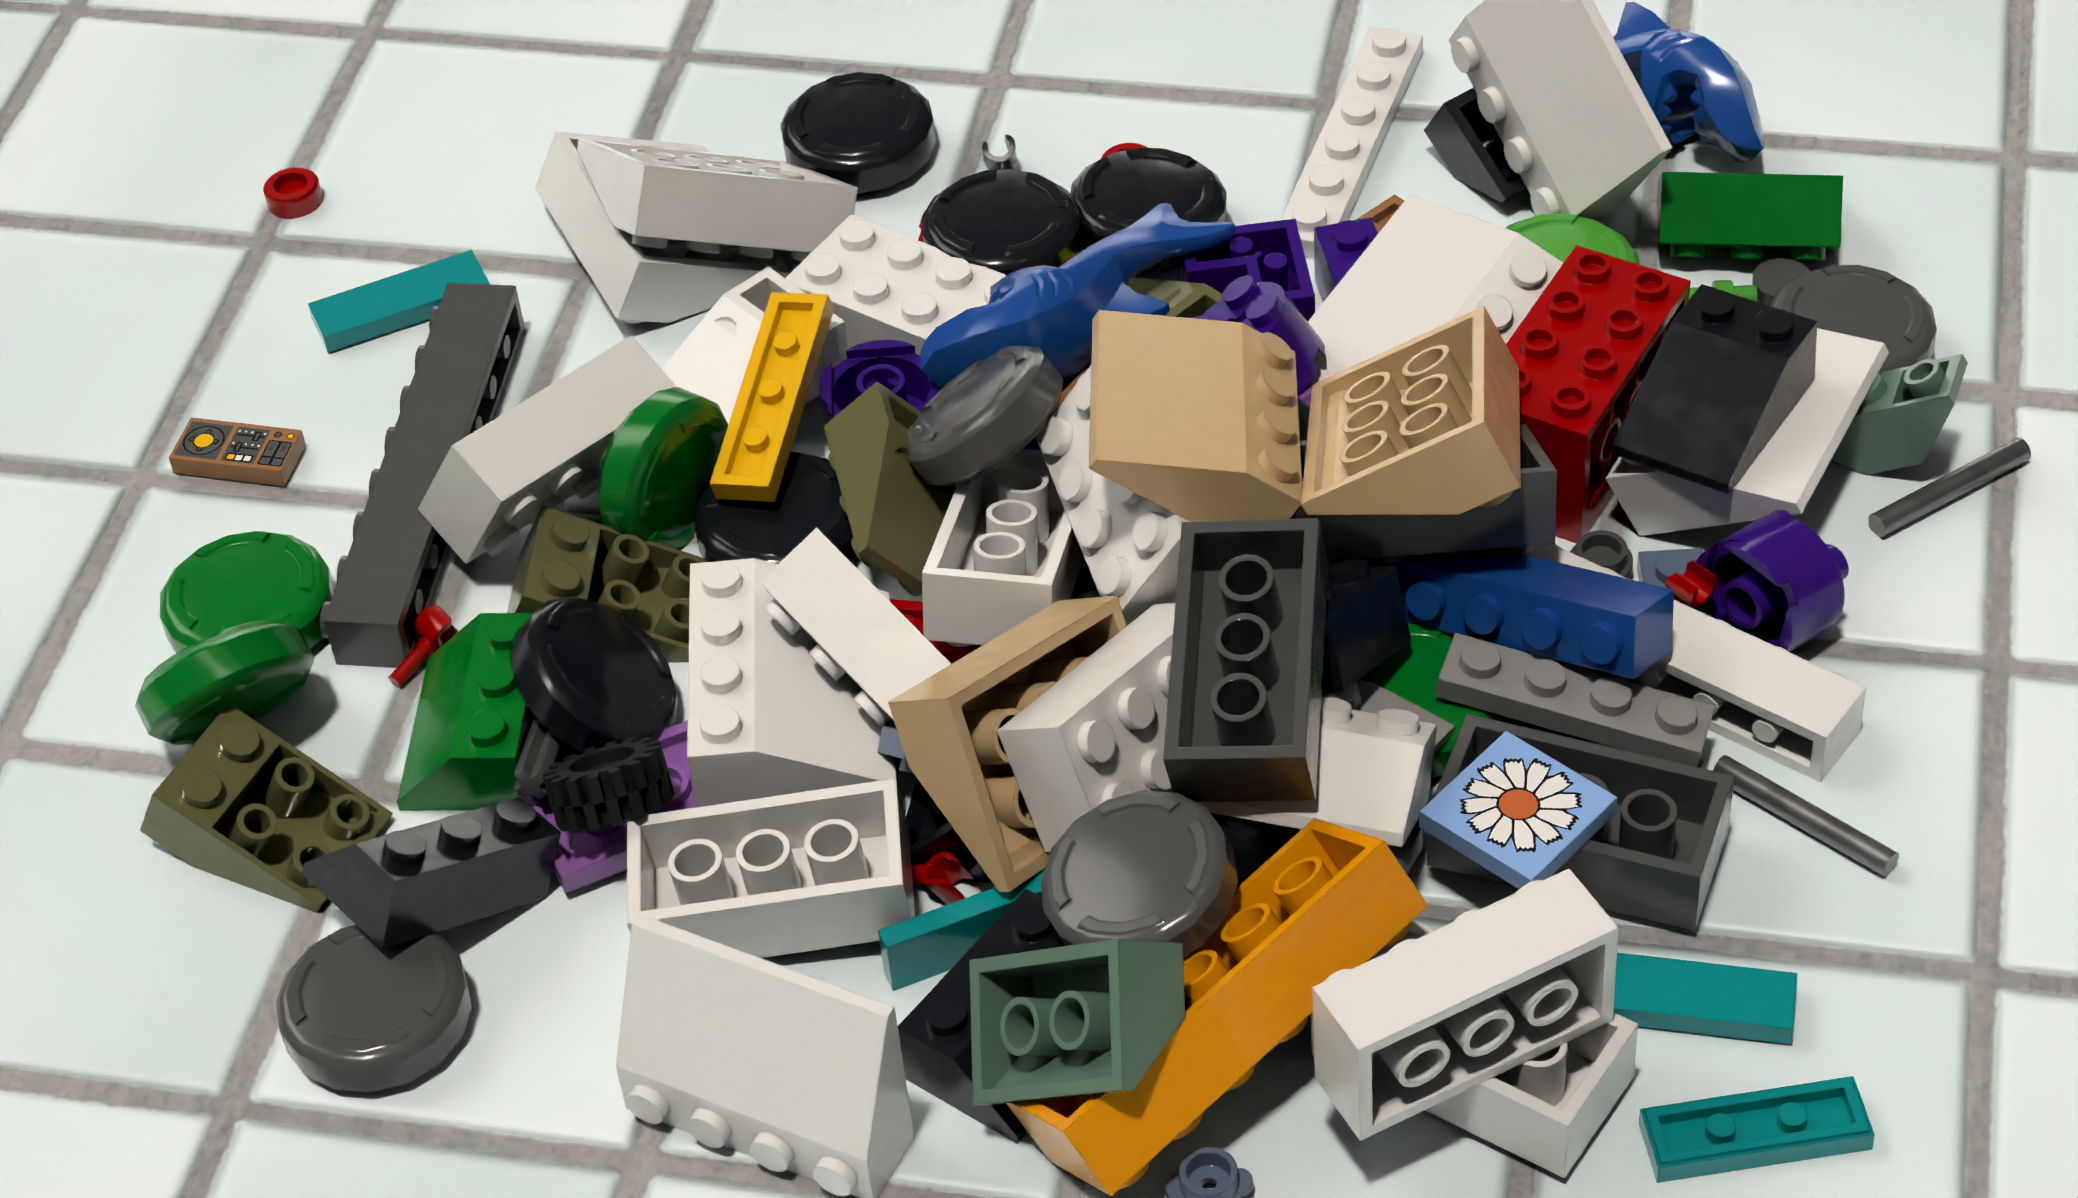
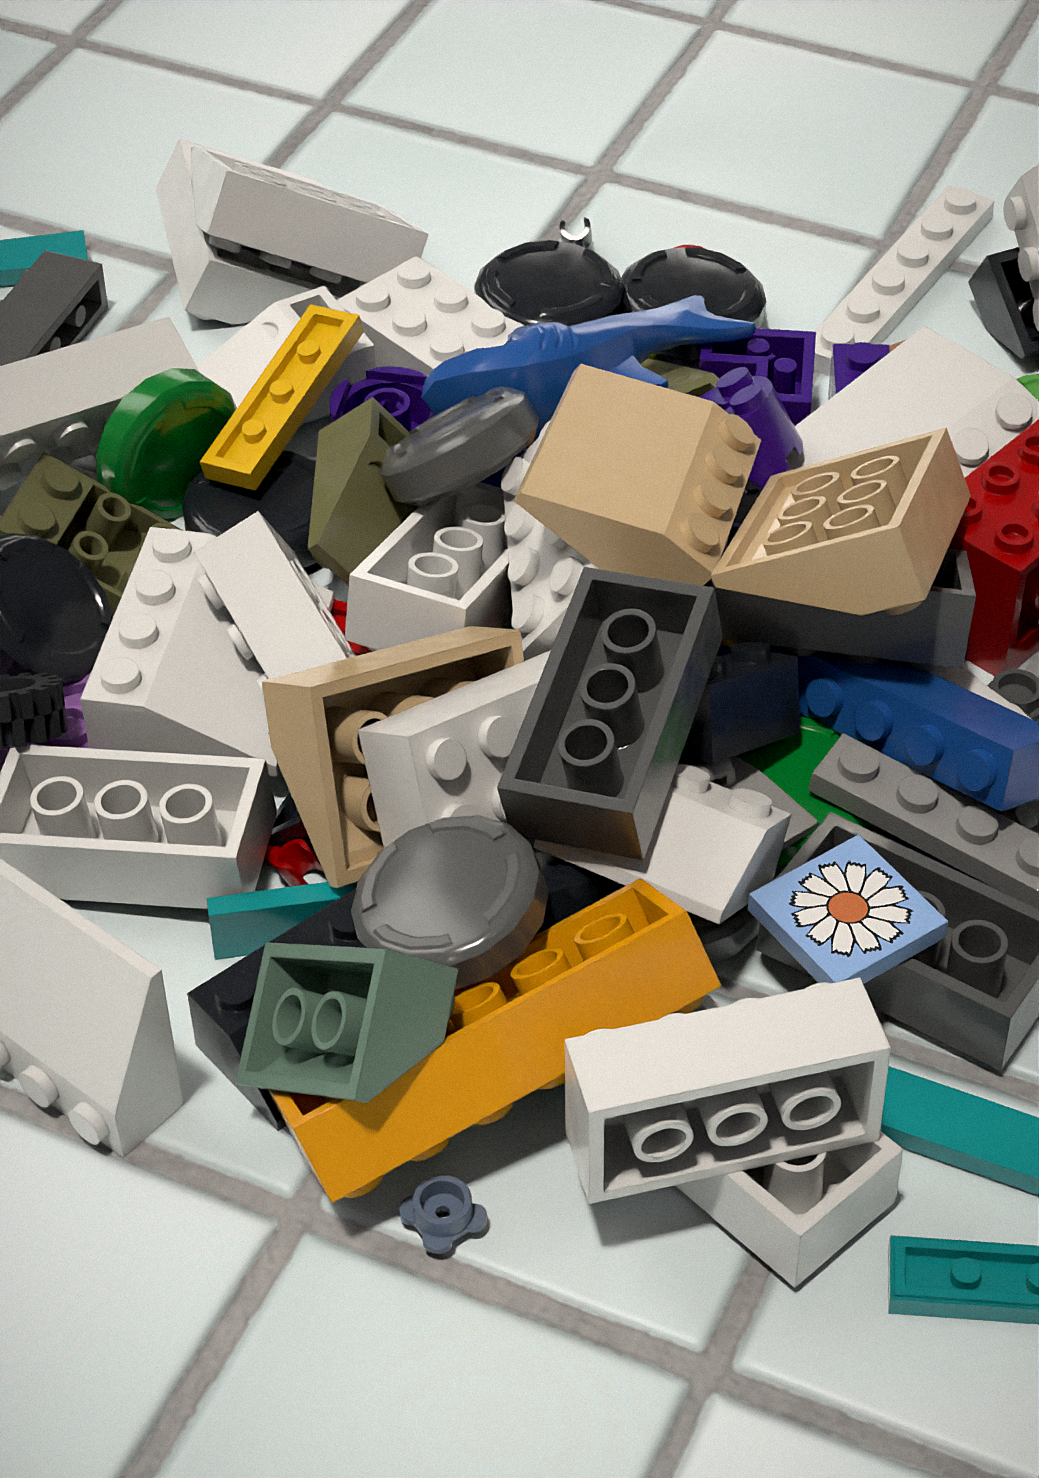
camera: 10 degrees right, 0 degrees up
(860, 130) = (457, 192): black piece -> none

